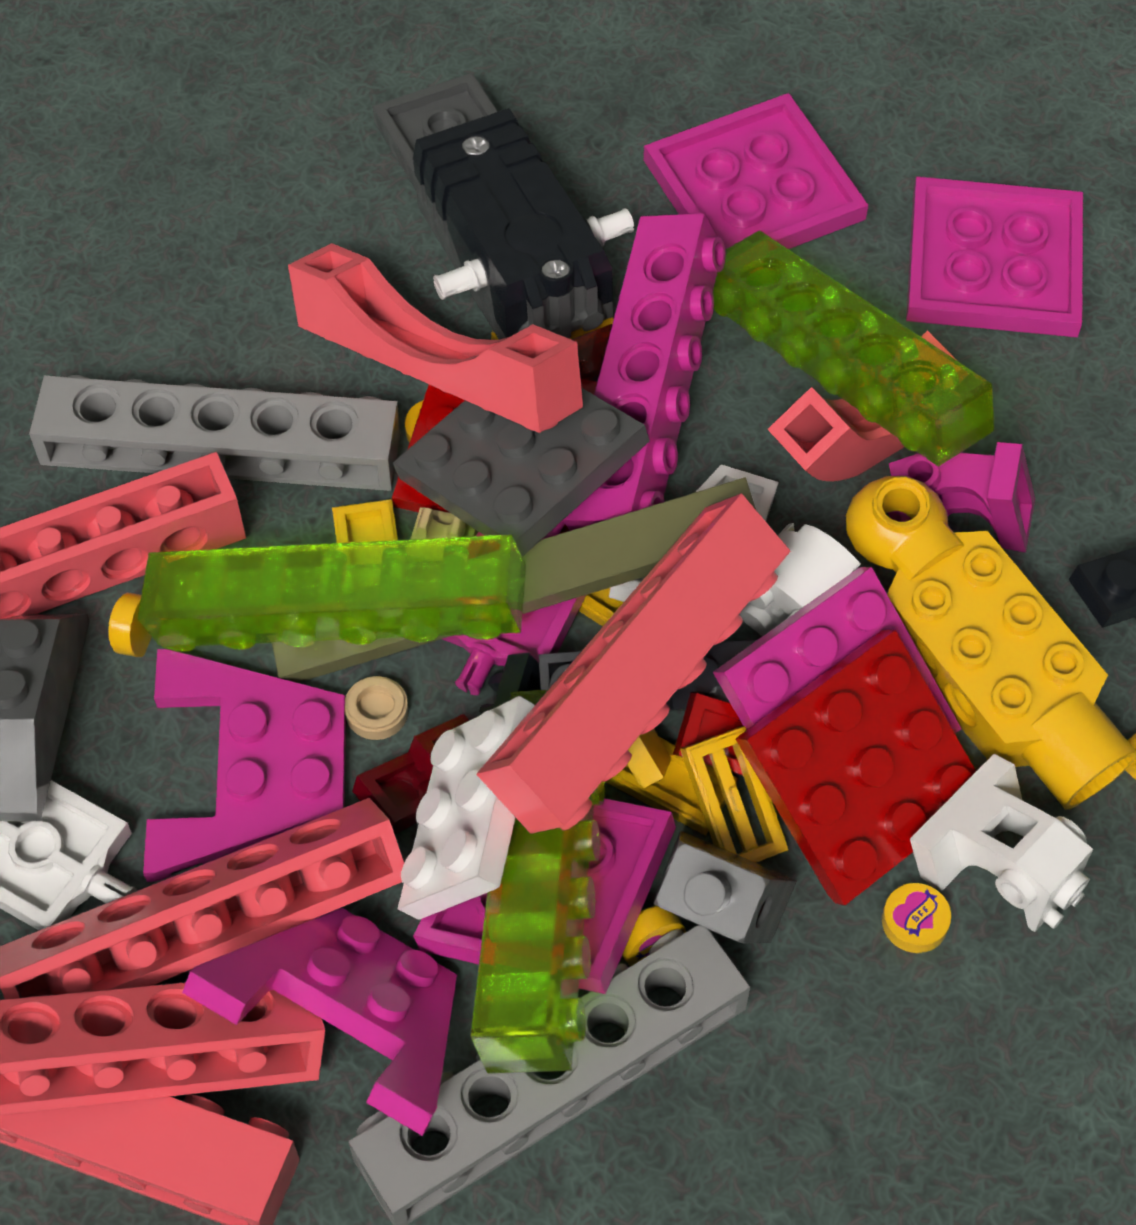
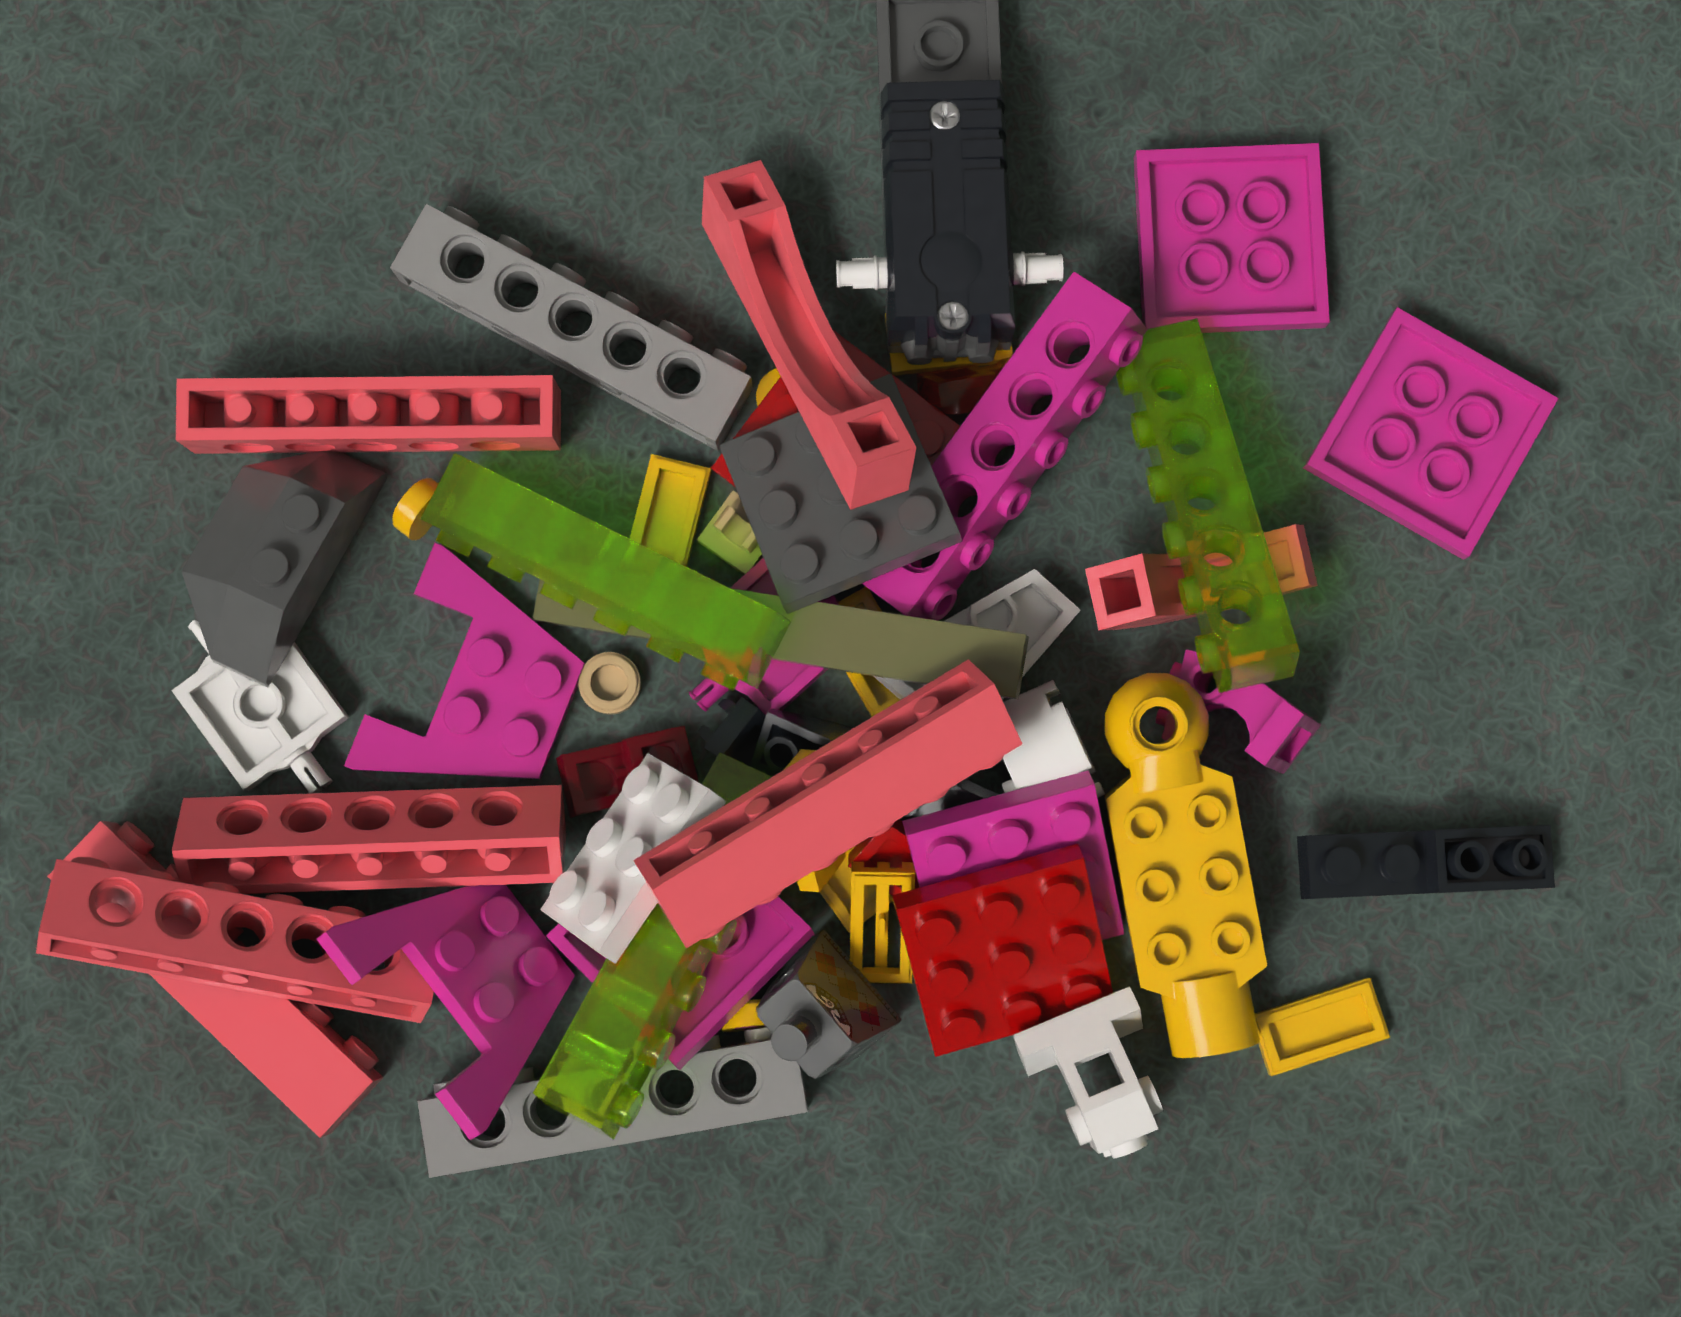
camera: 25 degrees right, 25 degrees up
(916, 918) = (992, 1093): yellow tile -> none

